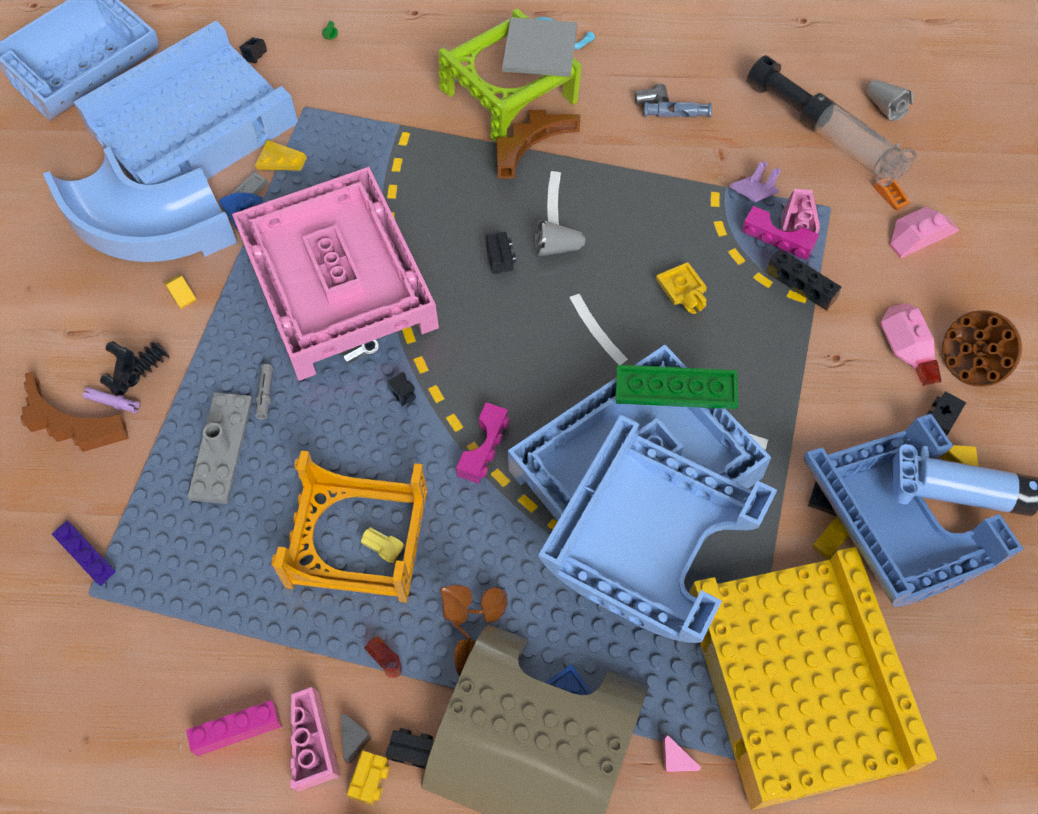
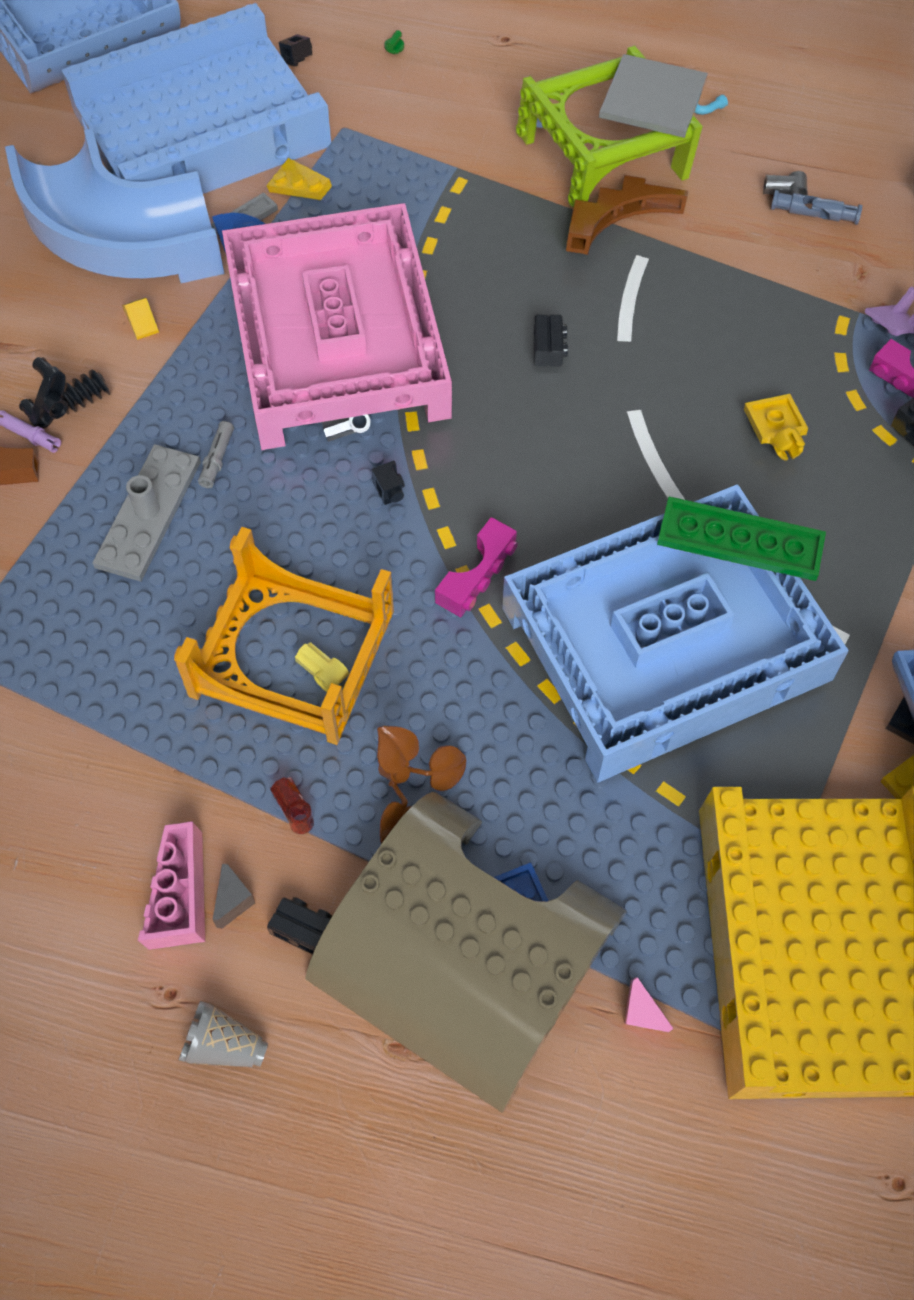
camera: 10 degrees right, 0 degrees up
(233, 728) = (85, 853): dark pink brick -> none
(368, 778) = (239, 951): yellow brick -> none
(556, 239) = (625, 336): light grey cone -> none
(640, 528) = (655, 702): light blue slope -> none

